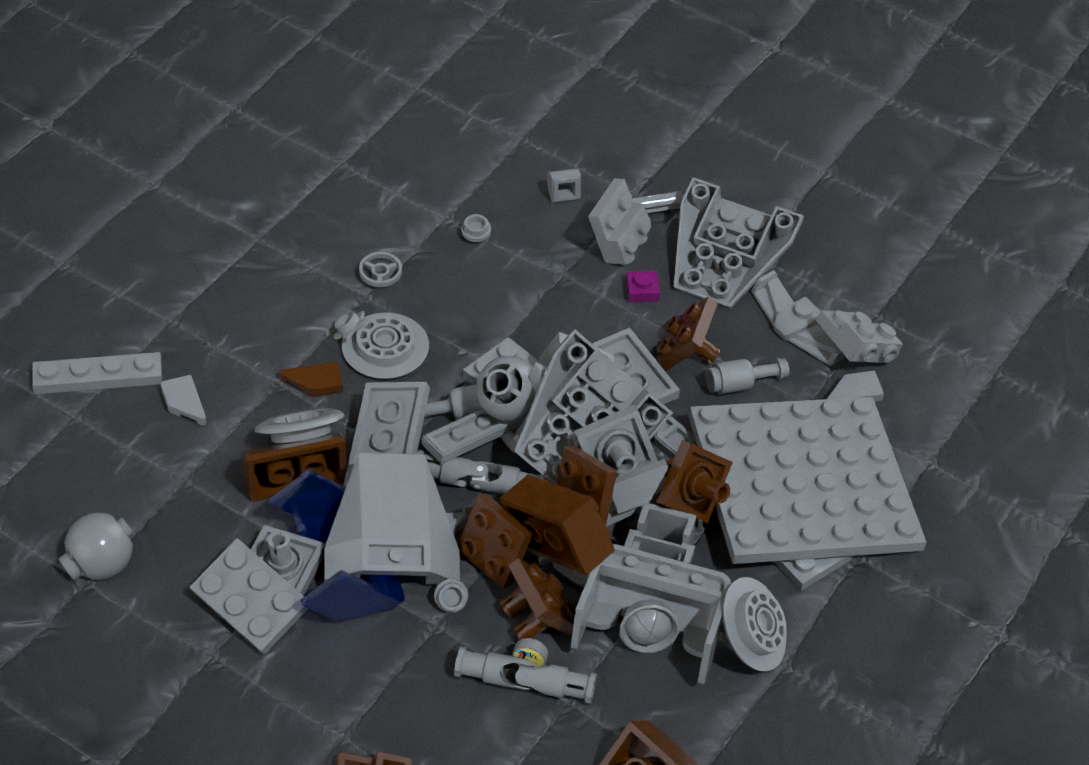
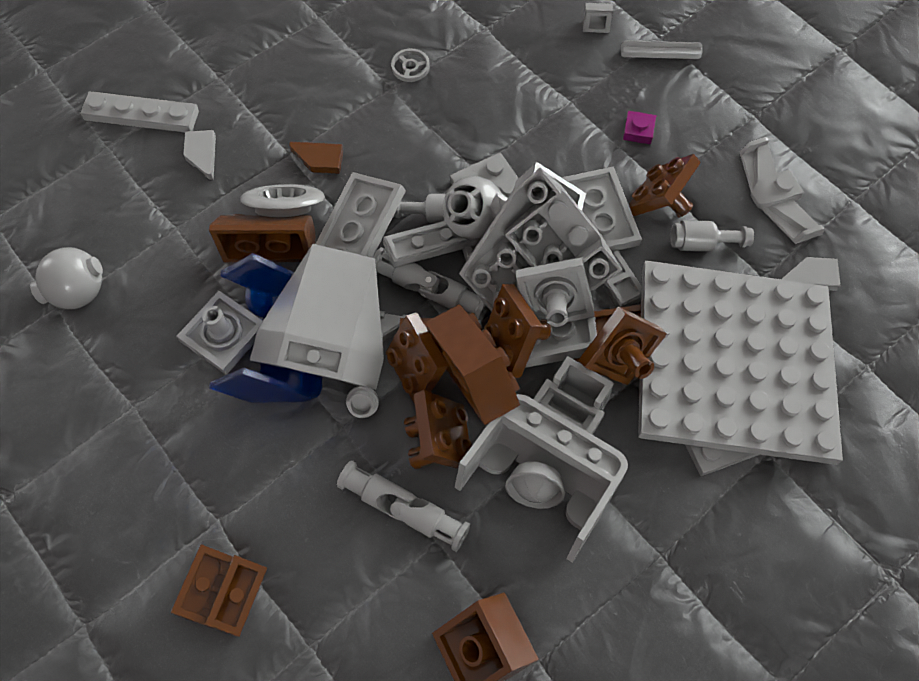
camera: 20 degrees right, 15 degrees up
(249, 596) = (178, 359): light grey plate -> none
(348, 324) = (363, 111): light grey plate -> none
(385, 338) = (389, 129): light grey wheel -> none
(476, 228) = (506, 43): light grey plate -> none
(531, 650) = (415, 483): tile -> none
(619, 224) = (633, 63): light grey plate -> none
(638, 486) = (563, 340): light grey tile -> none
(727, 244) = (729, 102): light grey wedge -> none
(754, 624) = (639, 513): light grey wheel -> none
(859, 337) = (831, 223): light grey plate -> none

